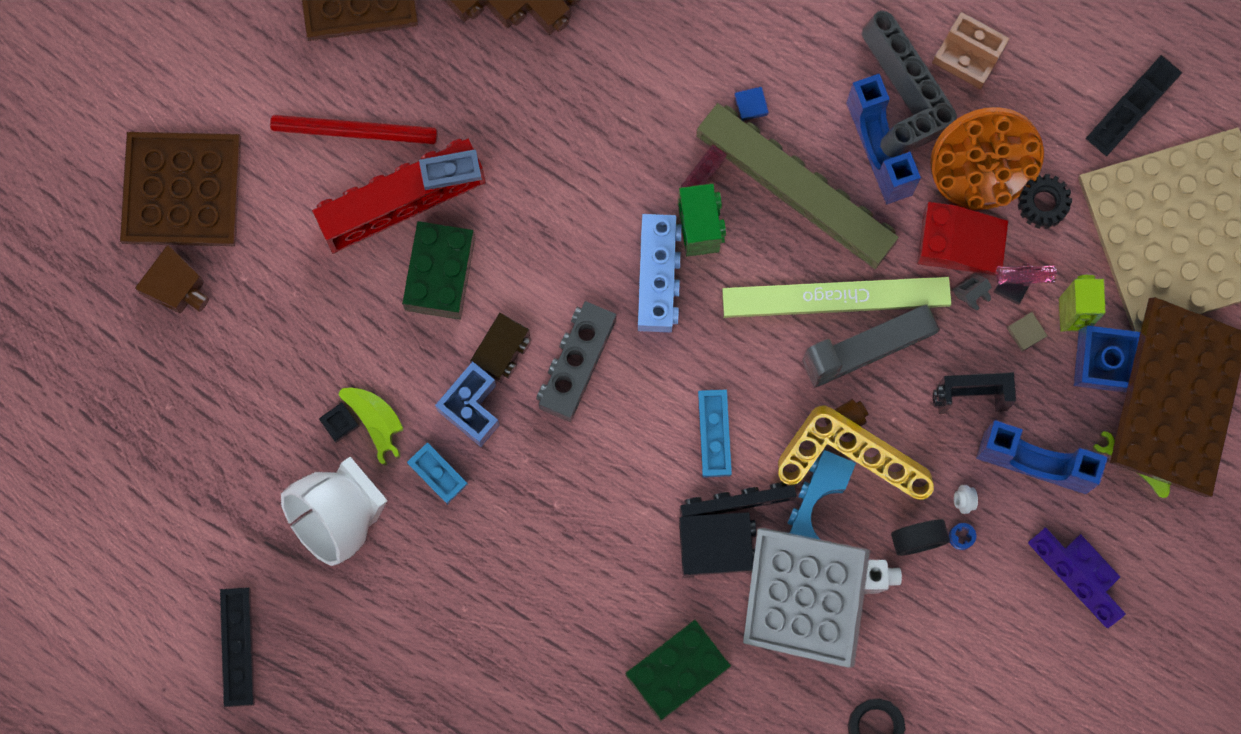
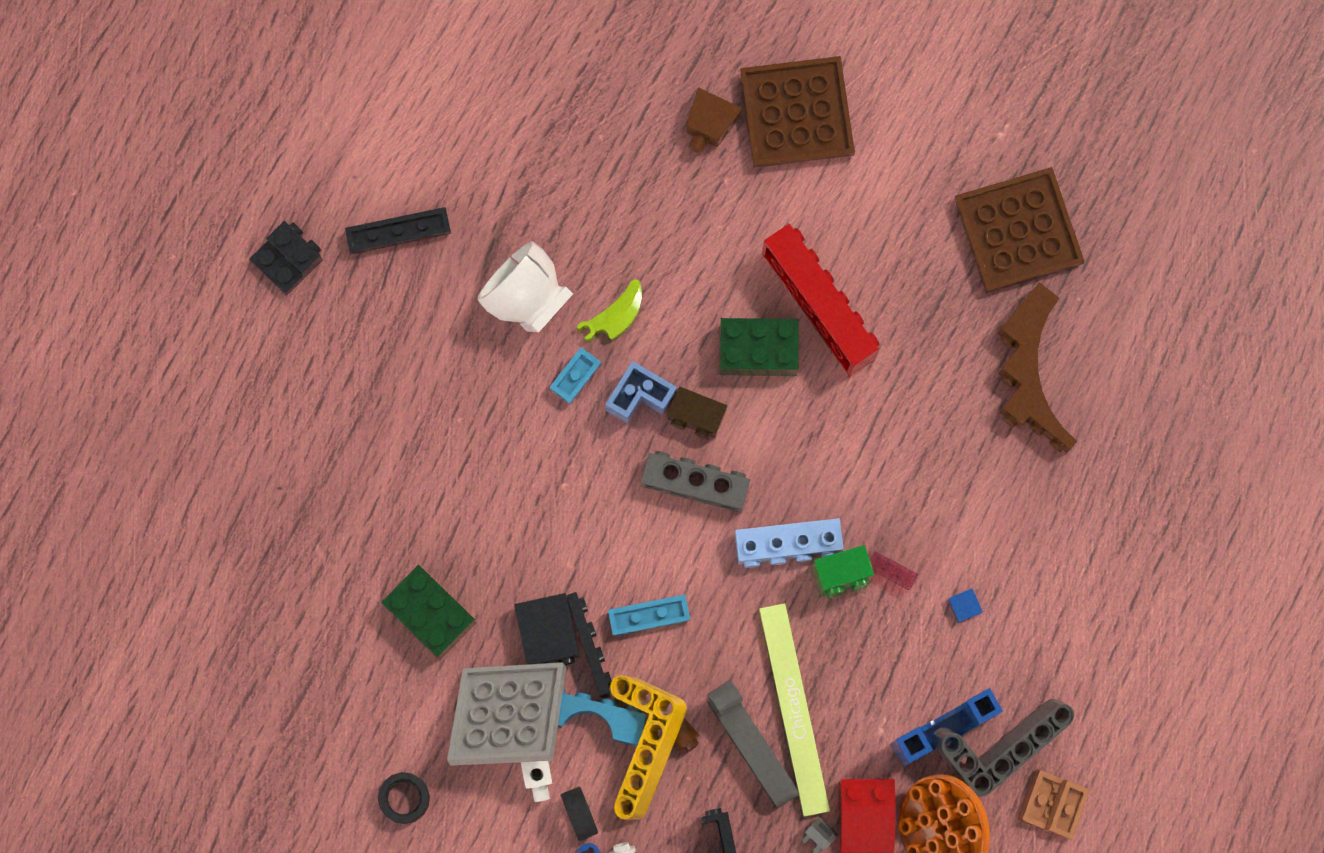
camera: 80 degrees right, 0 degrees up
(339, 422) = (609, 284): black tile -> none
(353, 129) = (878, 252): red axle -> none
(450, 169) = (845, 336): sand blue plate -> none
(797, 186) = (892, 657): olive brick -> none

